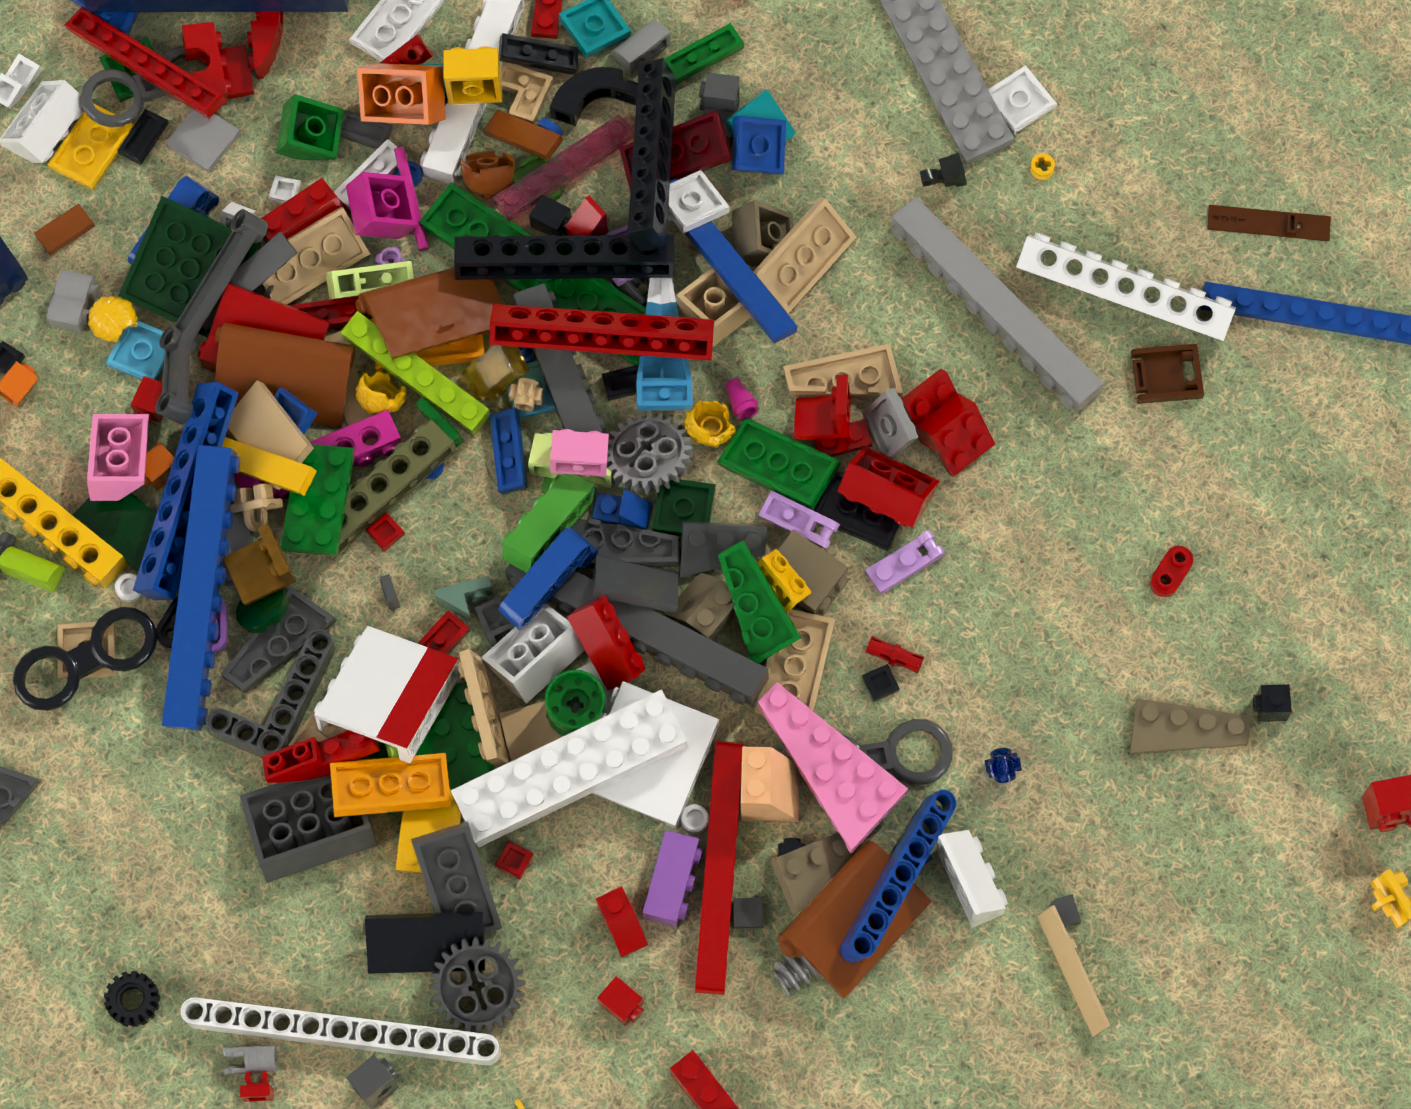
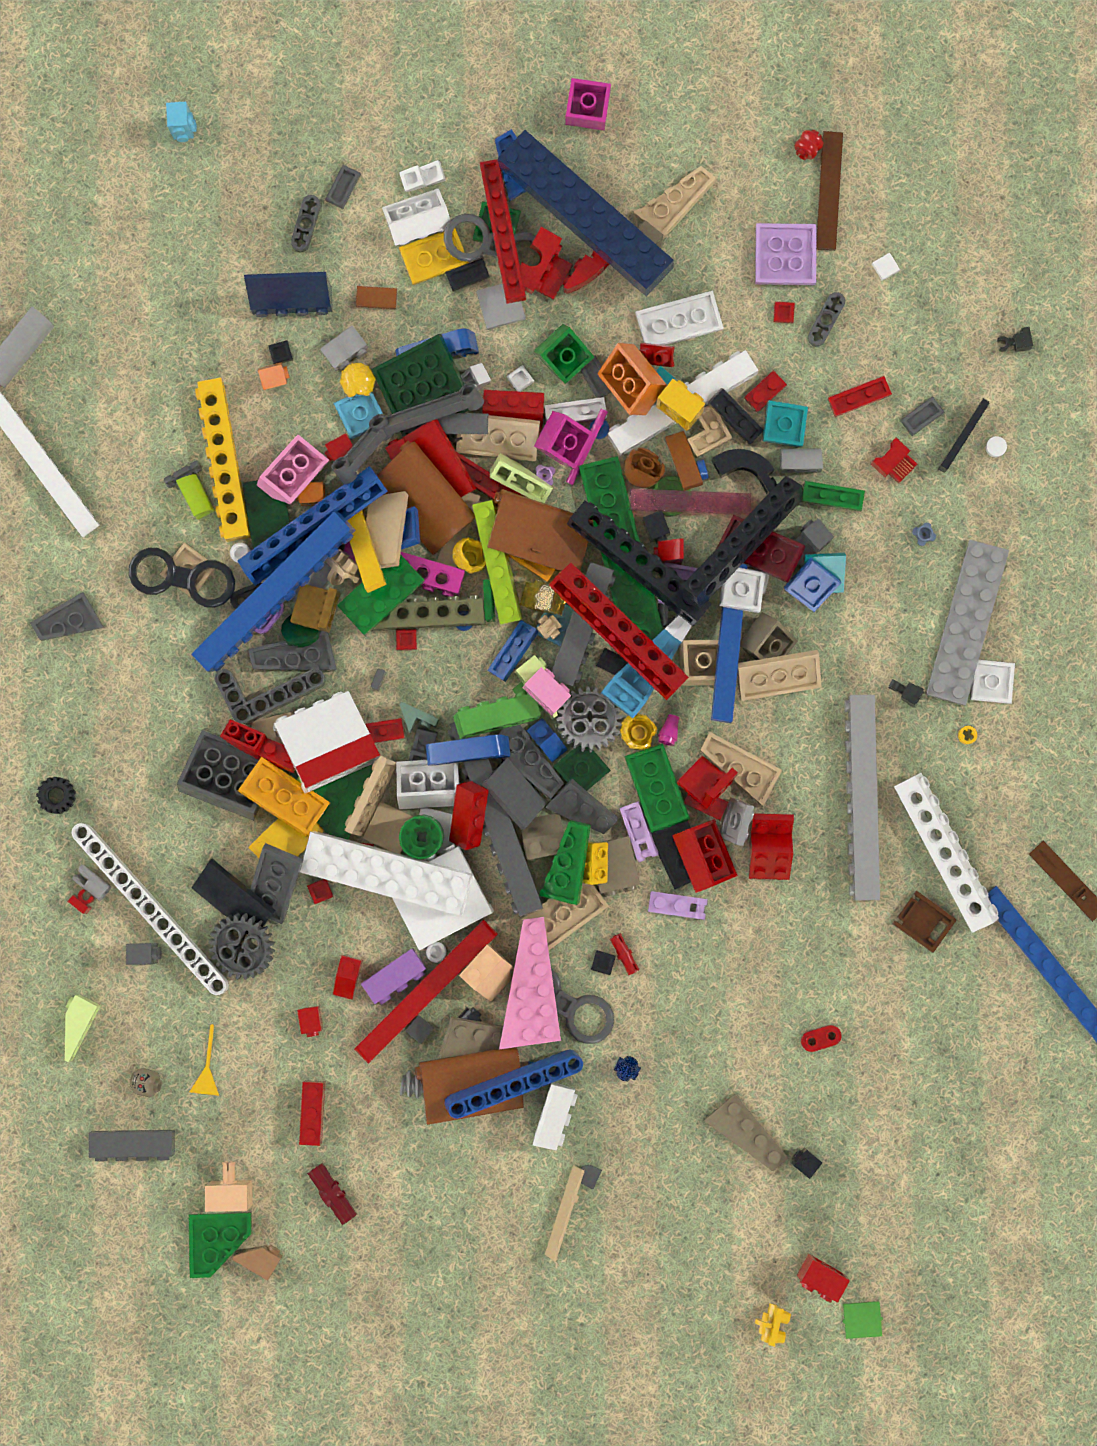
camera: 40 degrees right, 15 degrees up
(826, 12) = (926, 528): none -> sand blue plate

